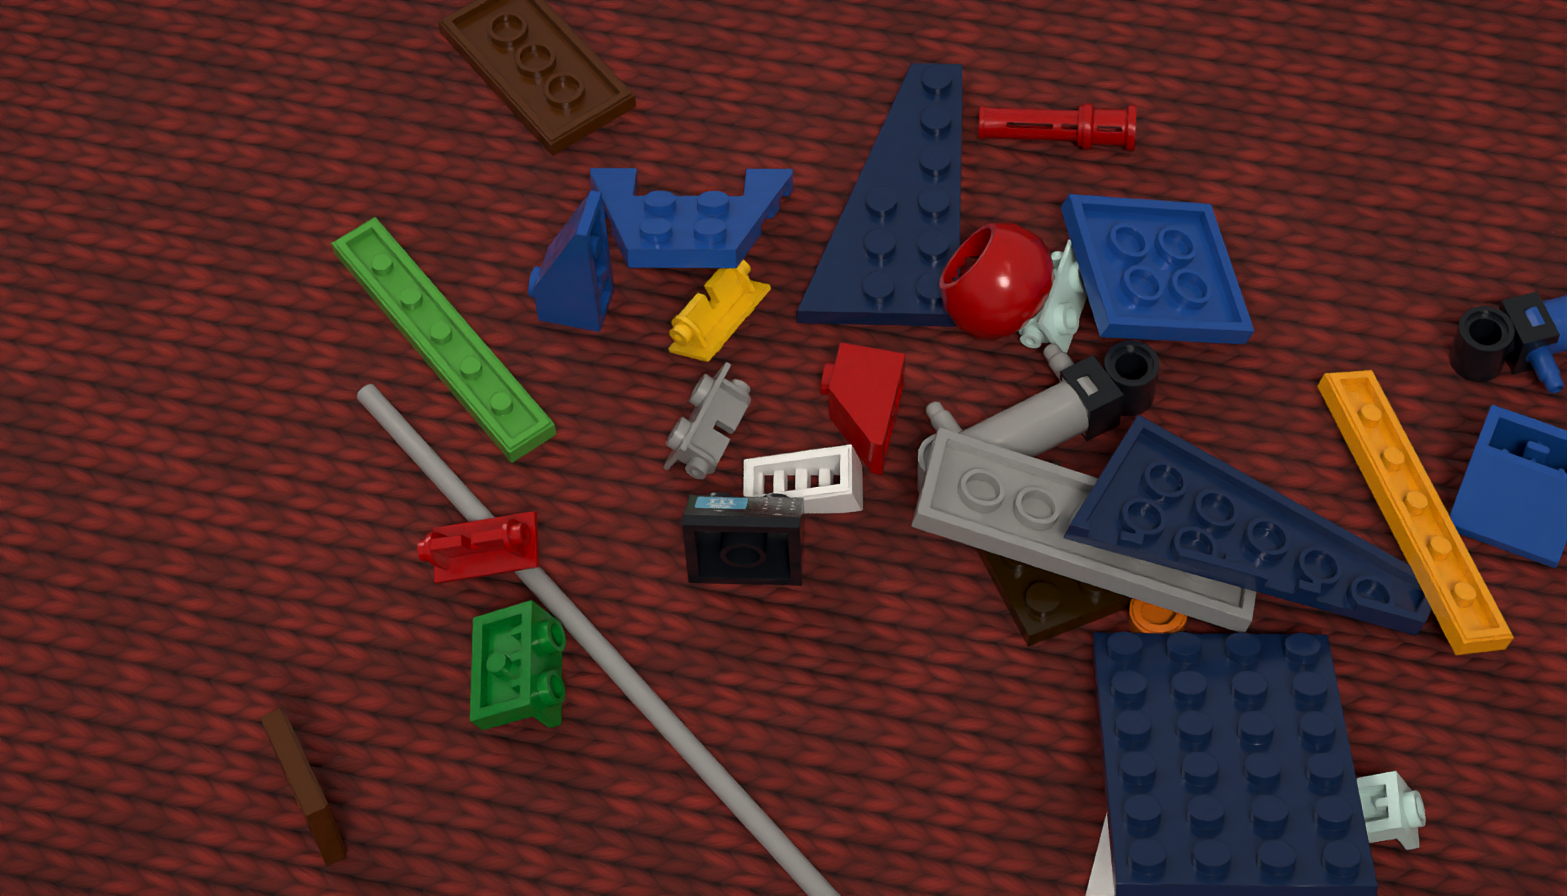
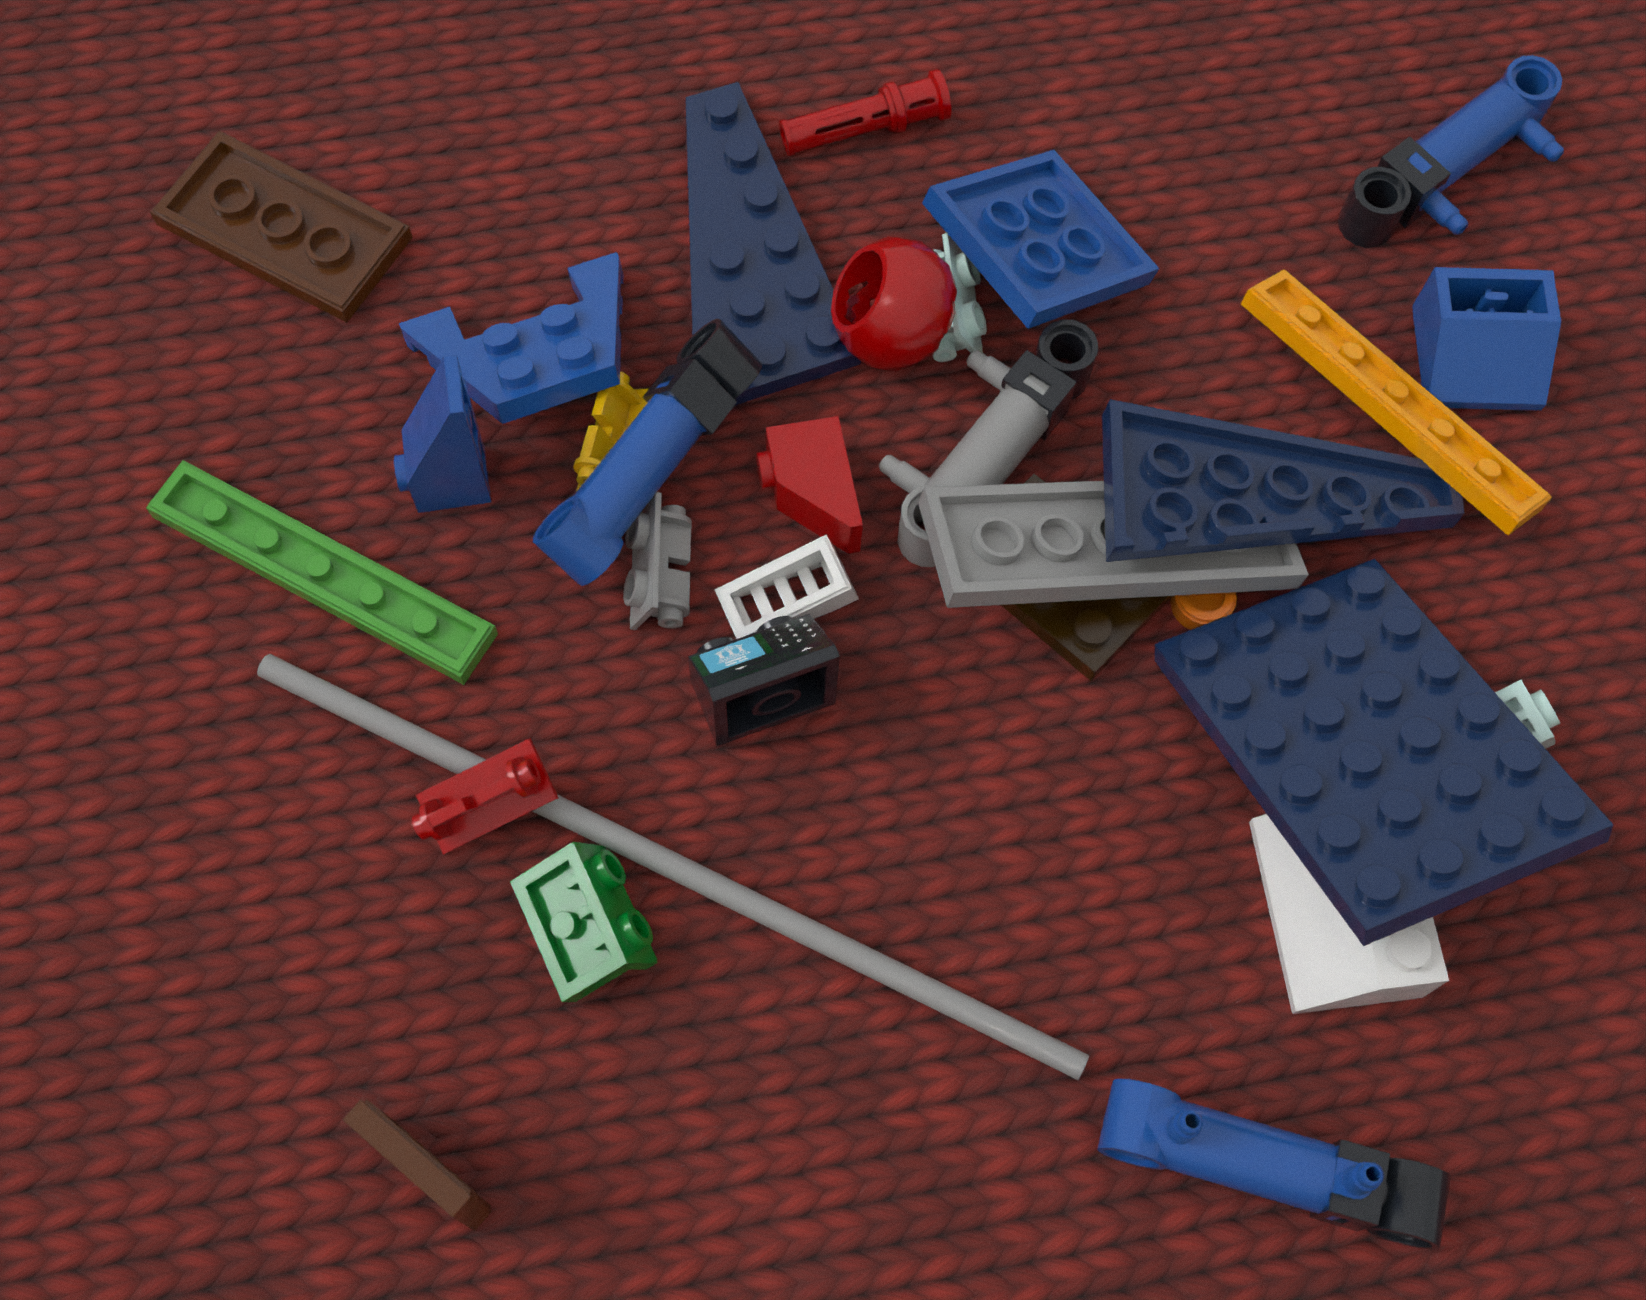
camera: 30 degrees left, 10 degrees up
(735, 327) = (681, 406): none -> blue piece

